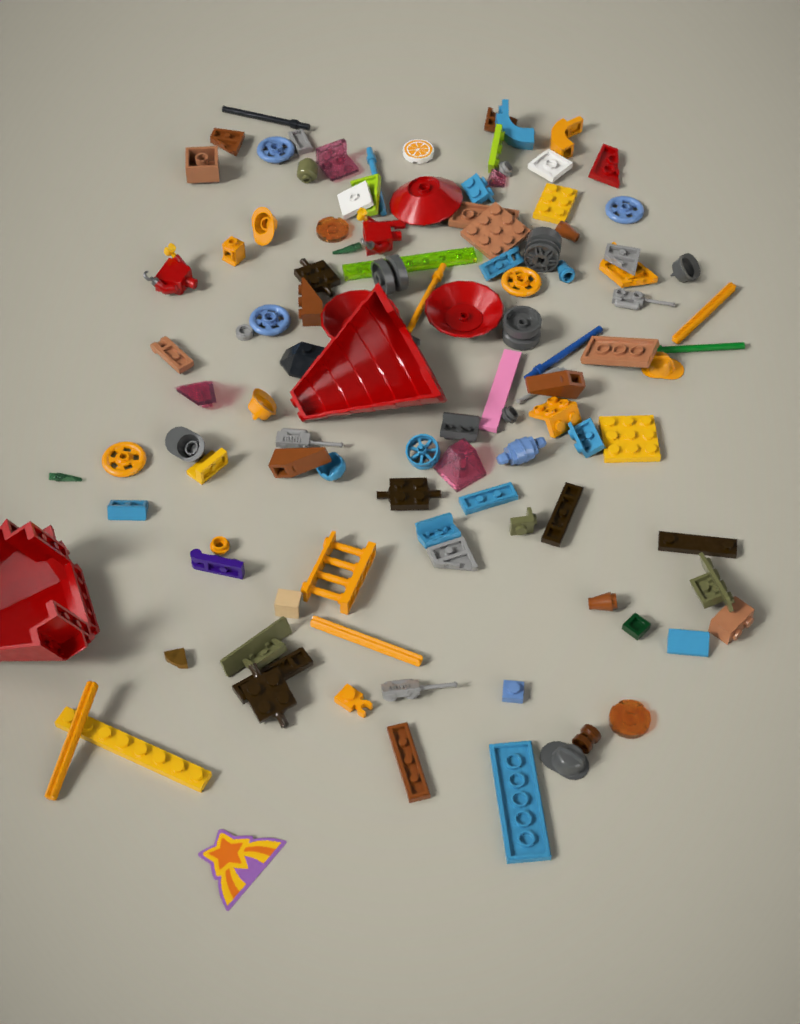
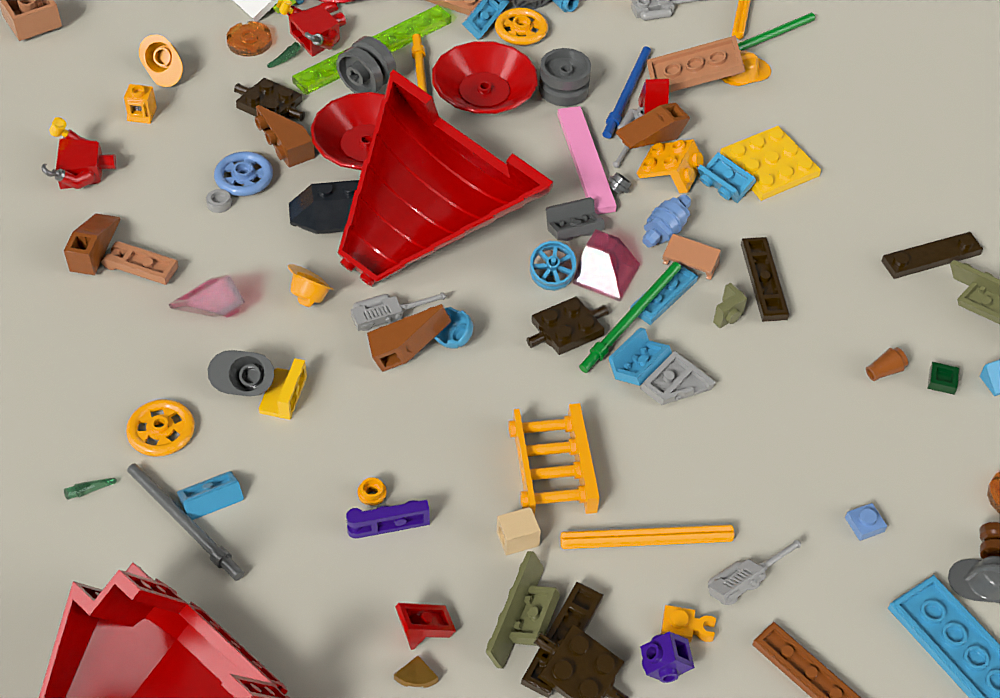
camera: 30 degrees left, 0 degrees up
(110, 545) = (218, 555): none -> dark grey bar
(149, 330) = (89, 243): none -> dark orange slope
(197, 629) = (424, 621): none -> red slope
(323, 710) = (666, 657): none -> dark purple brick
(417, 517) = (601, 349): none -> green bar
(522, 481) = (692, 255): none -> nougat hinge
(573, 361) = (653, 94): none -> red slope

